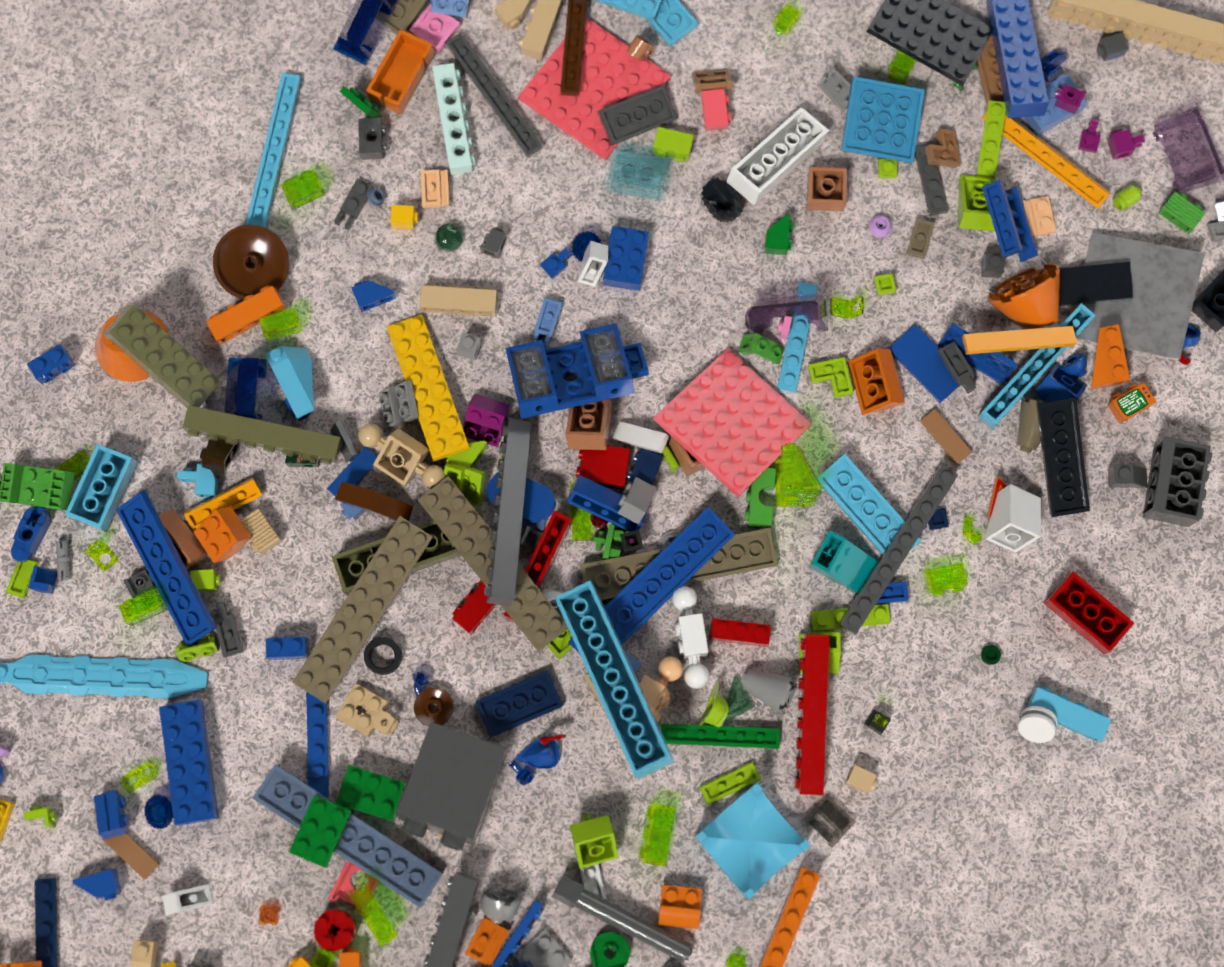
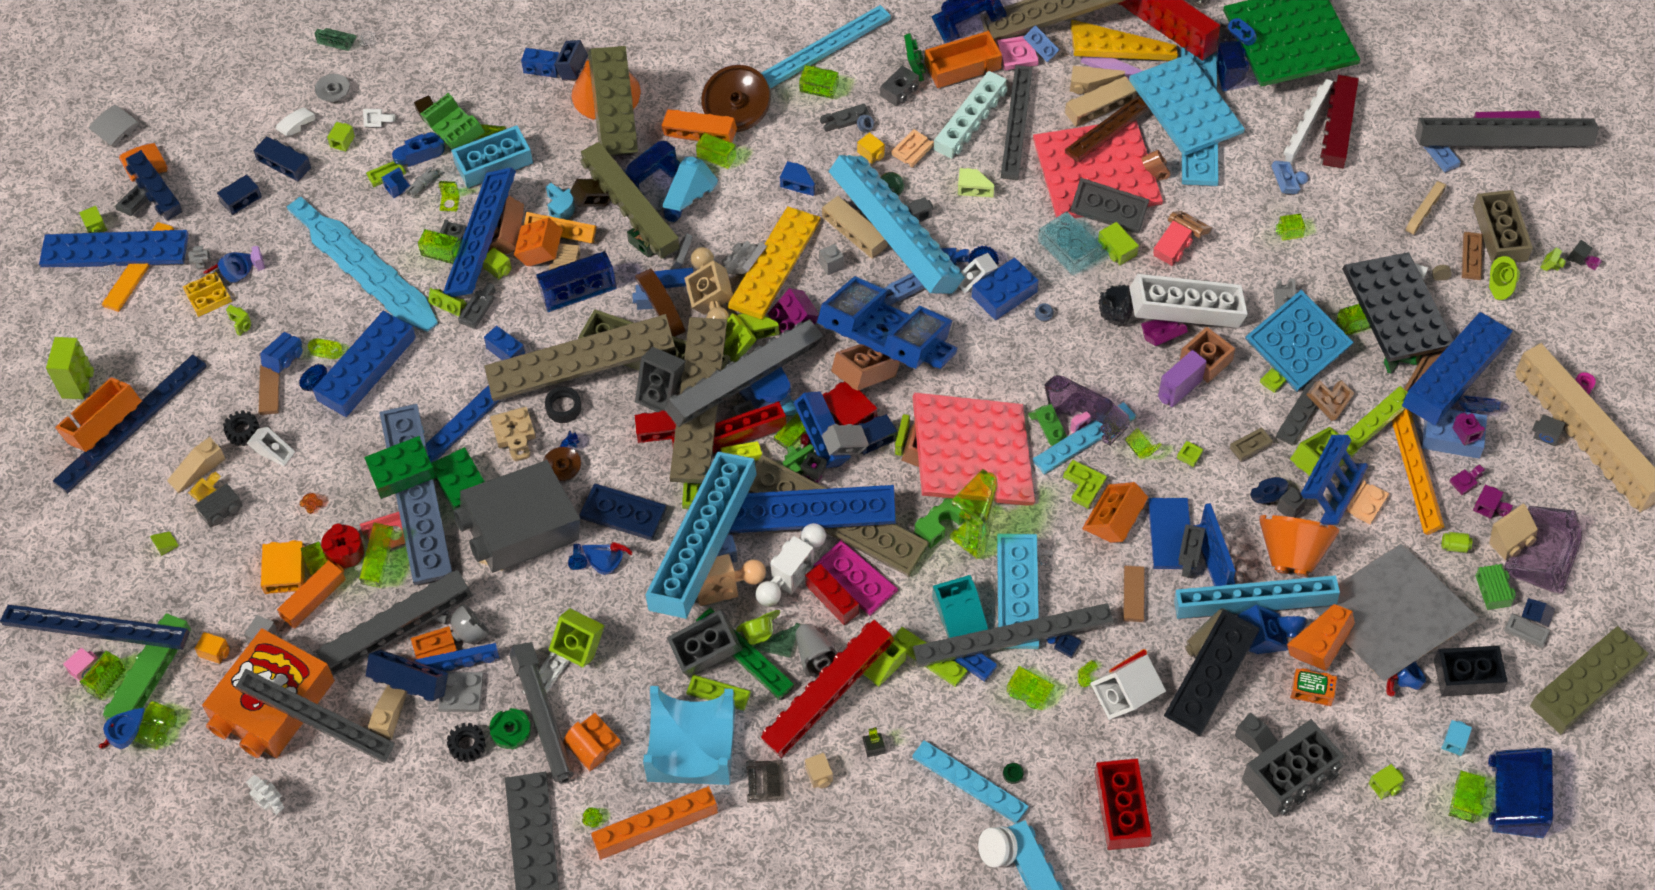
camera: 45 degrees right, 20 degrees down
(75, 340) = (571, 59): none -> dark blue brick
(100, 884) = (229, 390): blue slope -> none
(133, 905) = (236, 420): none -> black tyre
(288, 542) = (576, 281): none -> clear blue slope
(444, 573) = (658, 379): none -> dark grey slope
(491, 272) = (896, 224): none -> medium azure brick
(514, 181) = (974, 183): none -> yellowish green slope
(560, 502) = (789, 408): none -> medium azure piece
(561, 575) = (749, 450): none -> neon yellow plate
(640, 437) = (893, 407): white tile -> none
(657, 834) = (628, 678): clear neon green brick -> none
(671, 247) = (1044, 308): none -> sand blue plate
(693, 759) = (704, 643): none -> dark grey brick
(740, 601) = (857, 577): none -> dark pink tile
(776, 199) = (1160, 331): none -> magenta bracket
(777, 237) = (1137, 360): green slope -> none
(828, 227) = (1181, 378): none -> medium lavender brick
(880, 231) = (1223, 417): lavender plate -> none
(964, 261) = (1269, 490): none -> dark blue dish
(967, 689) = (970, 782): none -> medium azure plate
(1019, 340) = (1254, 556): light orange tile -> none
(1095, 284) = (1365, 578): black tile -> none
(1162, 158) = (1513, 532): none -> tan slope

